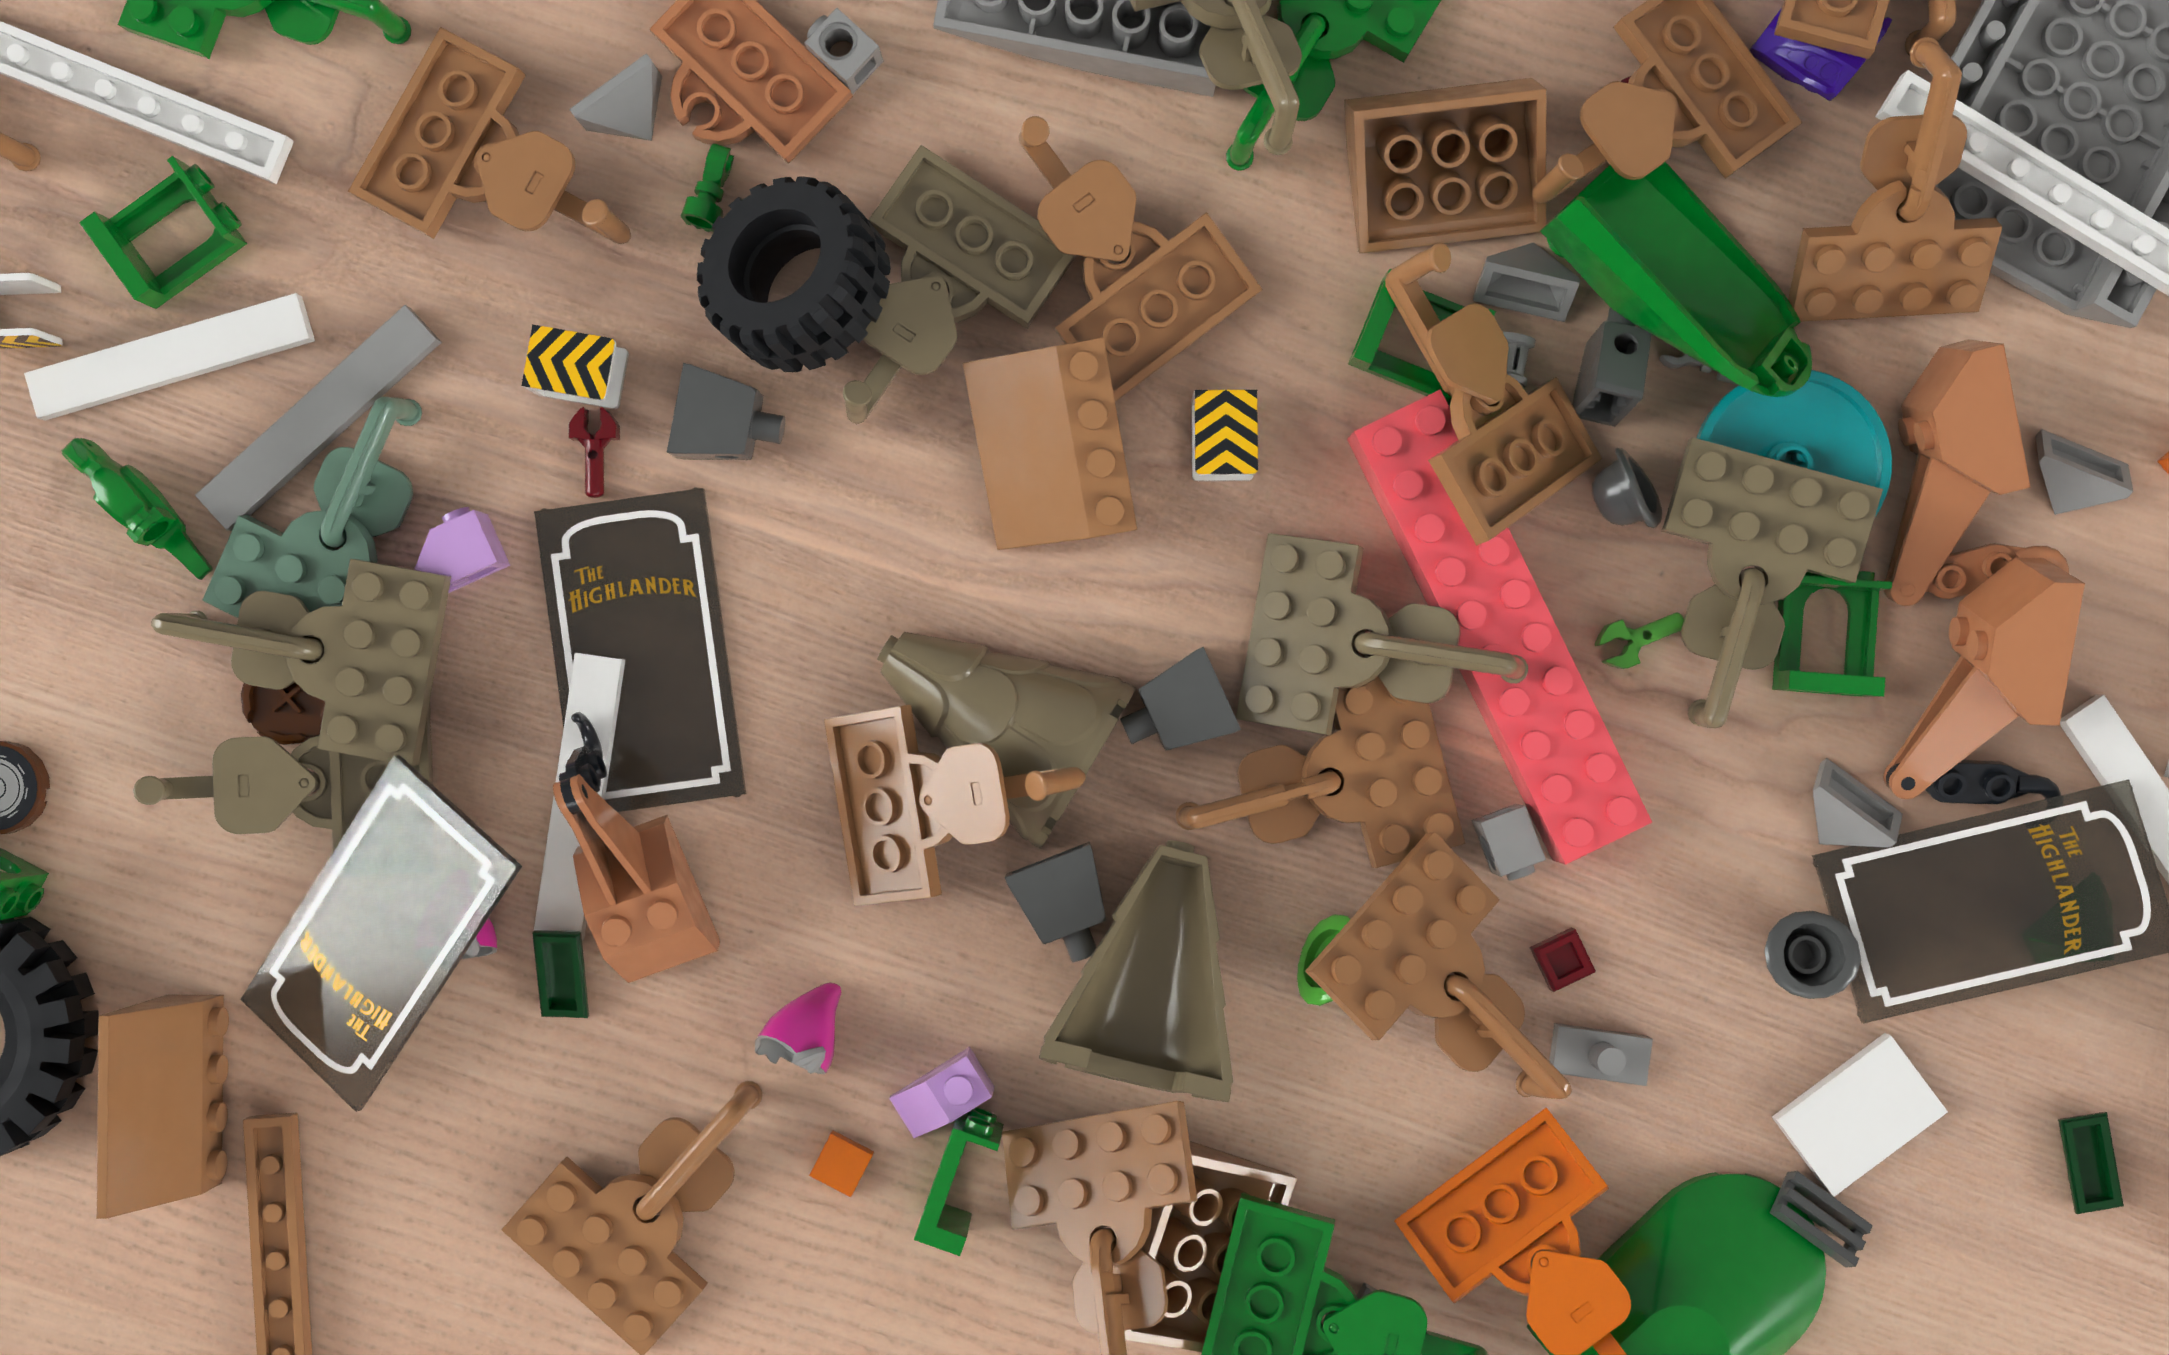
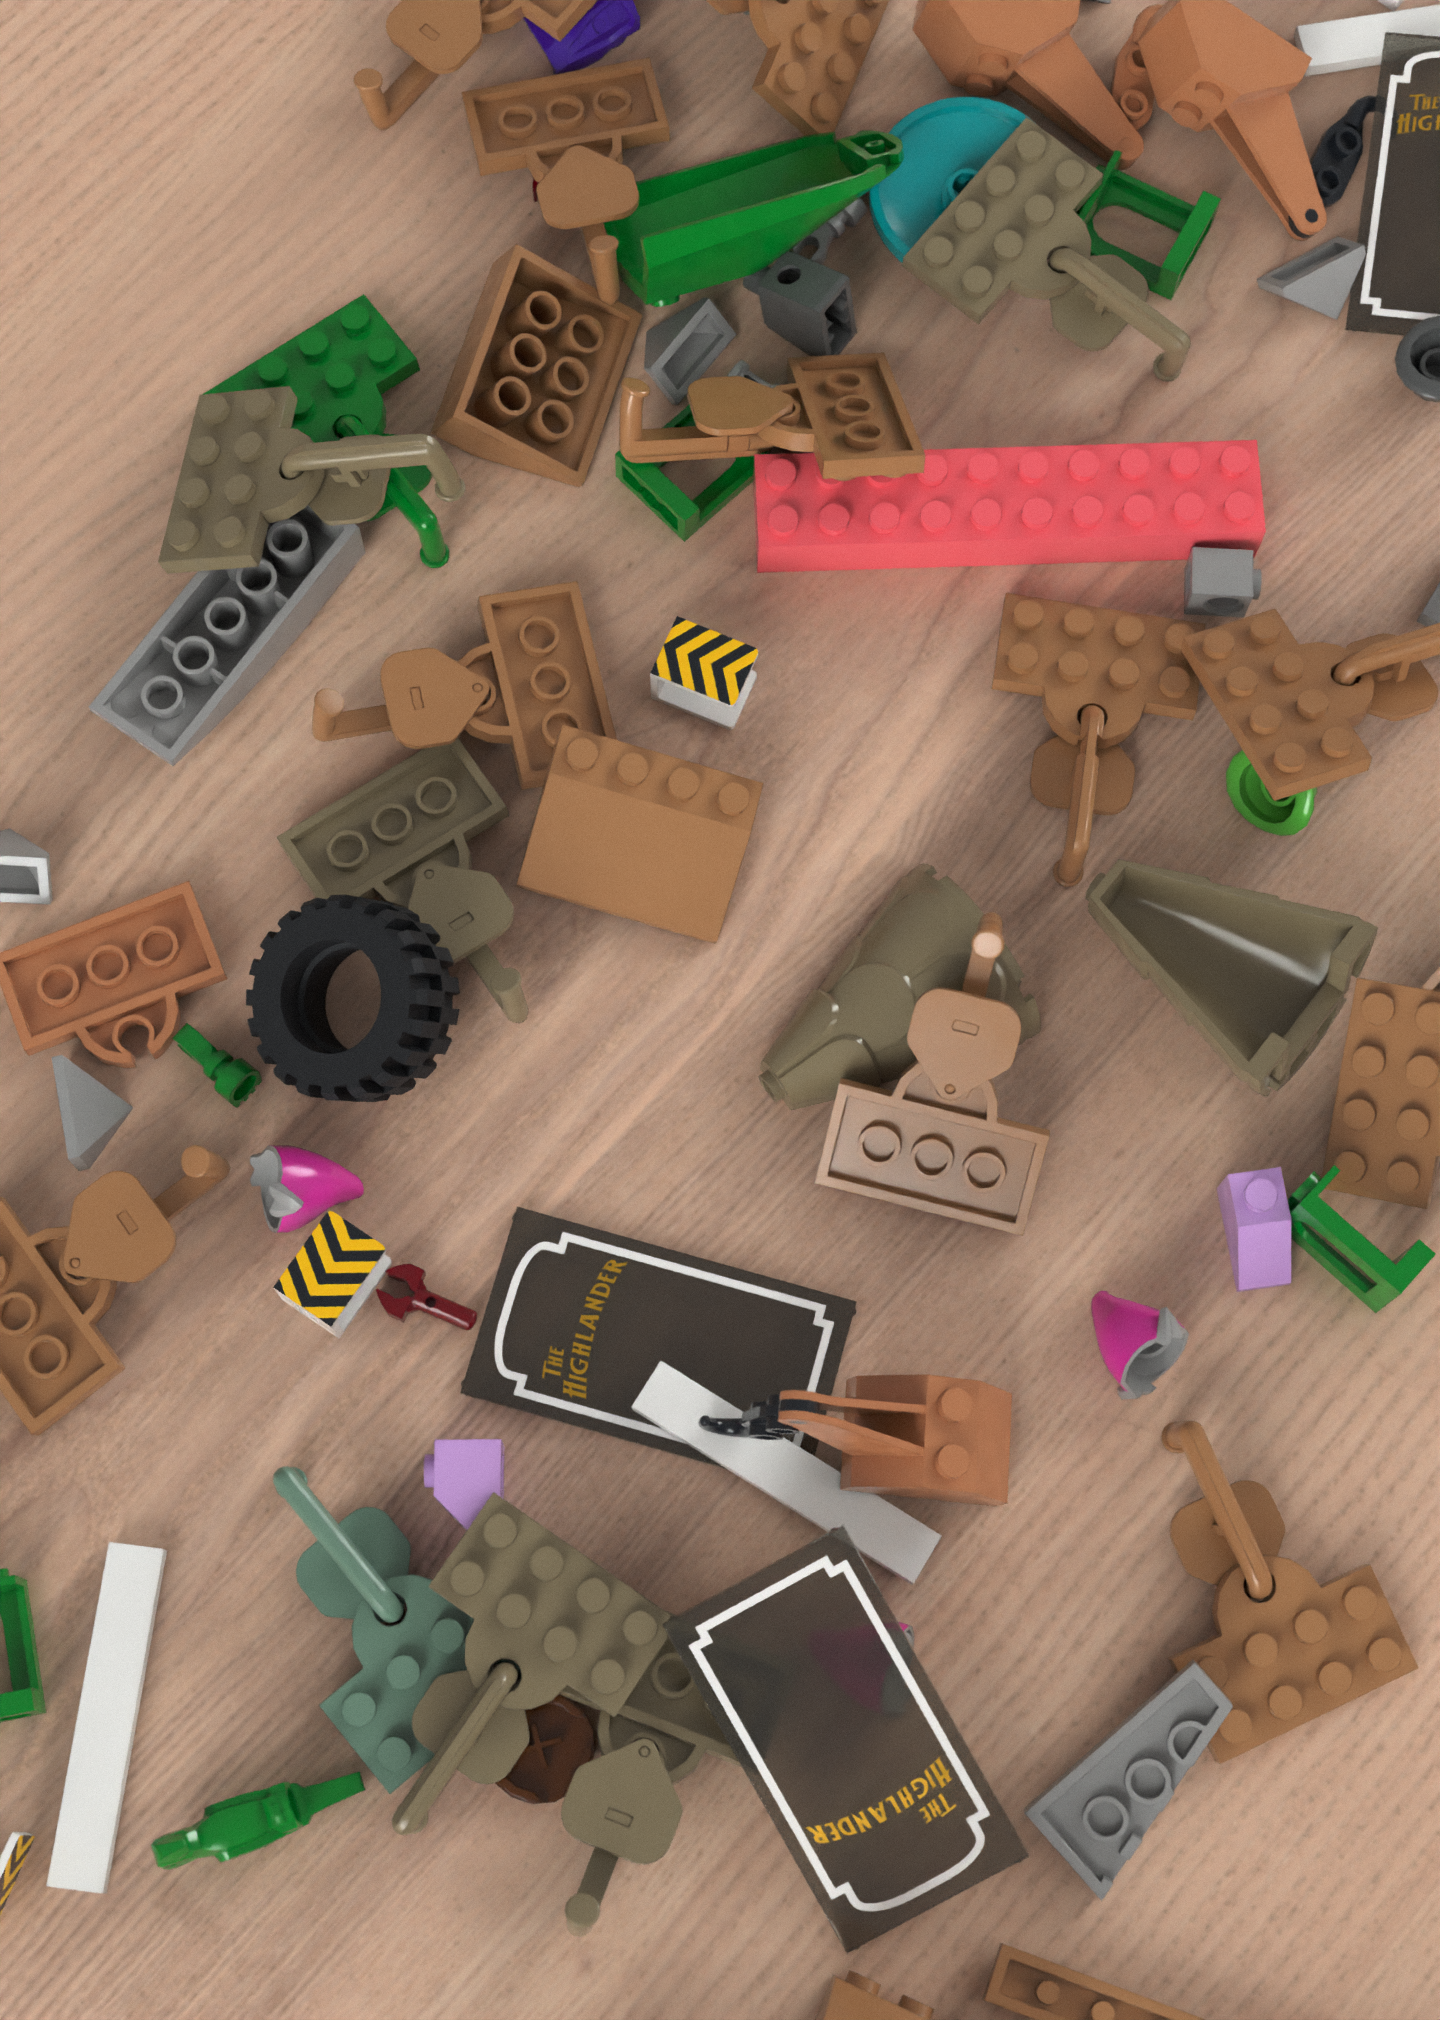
camera: 70 degrees left, 15 degrees down
(318, 417) = (253, 1582): light grey tile -> none
(443, 1158) = (1121, 1785): none -> light grey wing
(561, 973) = (968, 1570): dark green tile -> none
(636, 307) = (299, 1185): none -> dark pink hat
(719, 418) = (455, 1152): dark grey torso -> none
(841, 1163) = (1289, 1368): orange tile -> none
(853, 67) = (144, 851): light grey brick -> none
(1062, 898) = (1101, 1022): dark grey torso -> none
(1182, 705) = (954, 822): dark grey torso -> none
(1310, 634) = (933, 675): dark tan plate -> none
(1562, 959) = (1356, 586): dark red tile -> none
(1626, 493) = (926, 343): dark grey hat -> none
(1637, 638) = (1070, 394): bright green bar -> none

